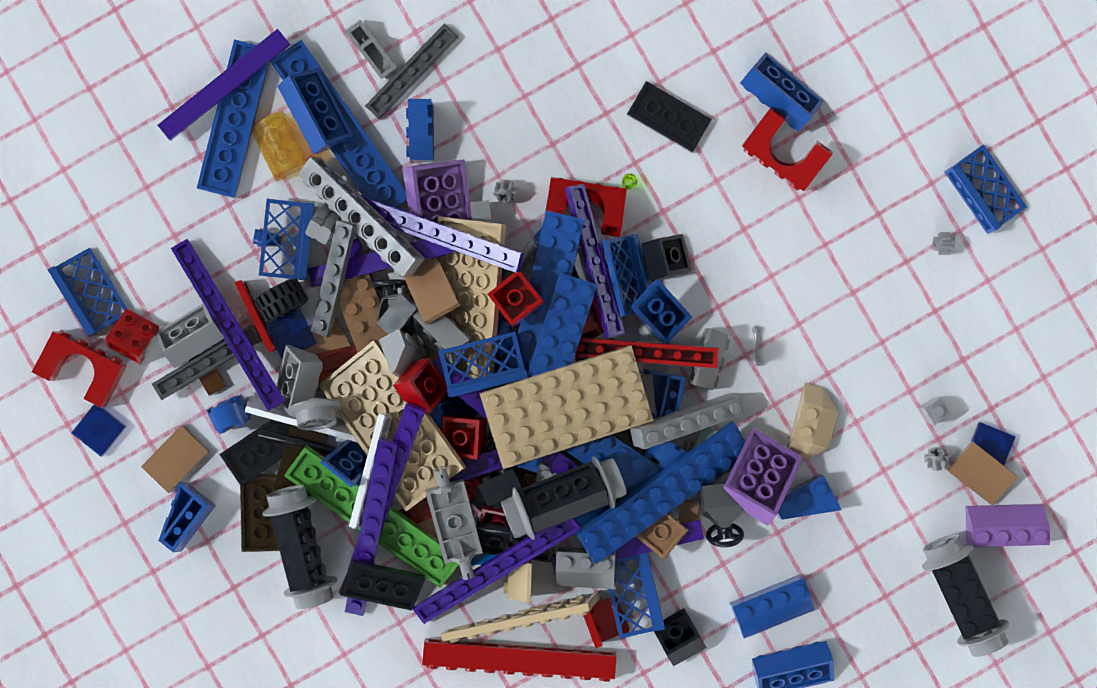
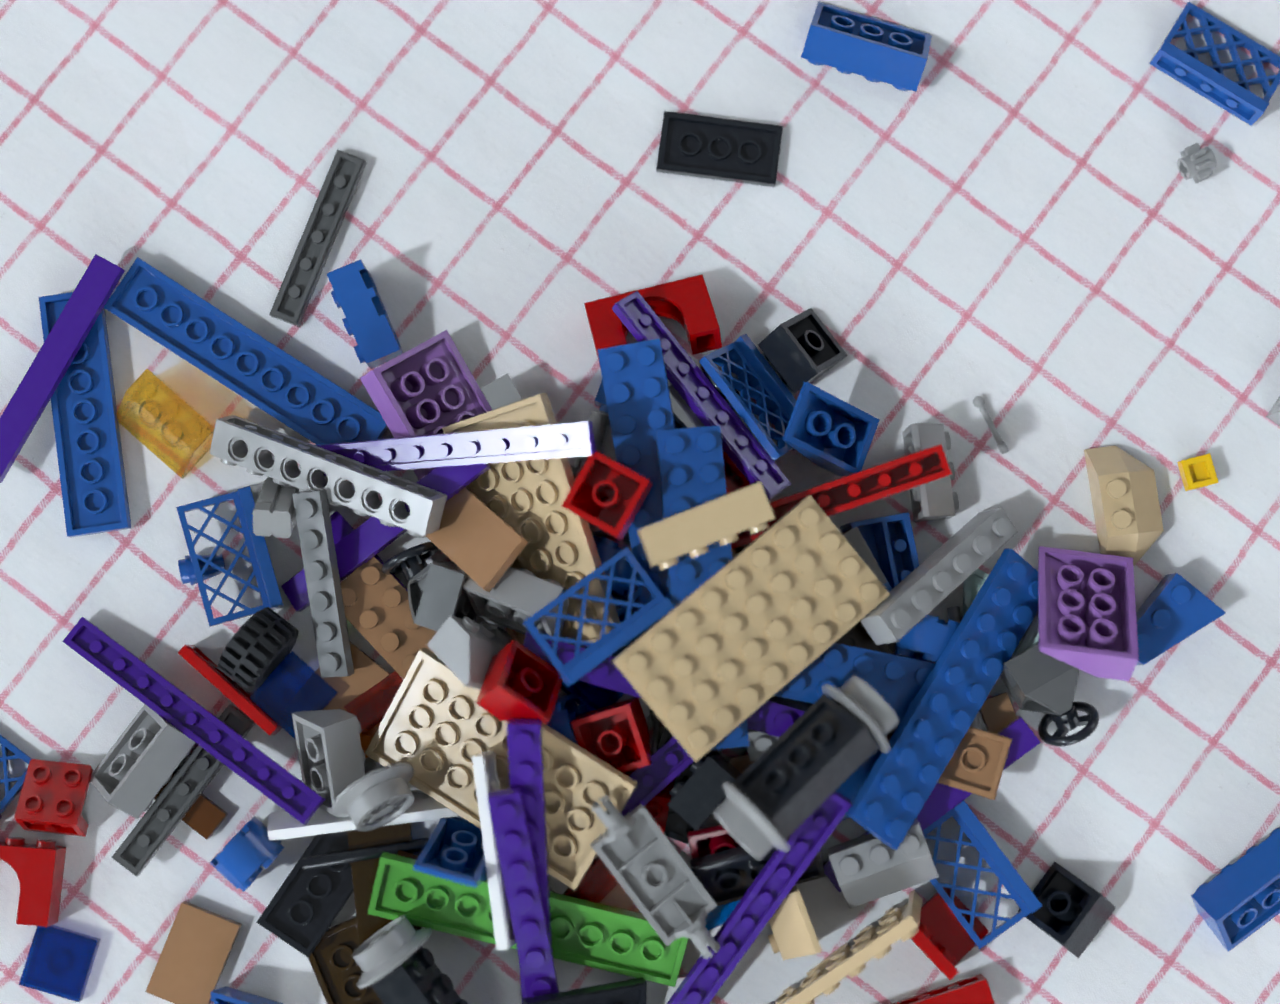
camera: 25 degrees left, 5 degrees down
(315, 110) = (197, 349): blue slope -> none
(370, 49) = (244, 229): light grey slope -> none
(505, 191) = (526, 352): light grey gear -> none
(564, 339) = (706, 524): none -> tan brick
(627, 178) = (696, 260): clear neon green hinge -> none
(772, 606) = (1185, 802): blue slope -> none
(798, 173) = (944, 149): red arch -> none
(863, 423) = (1197, 472): none -> yellow plate

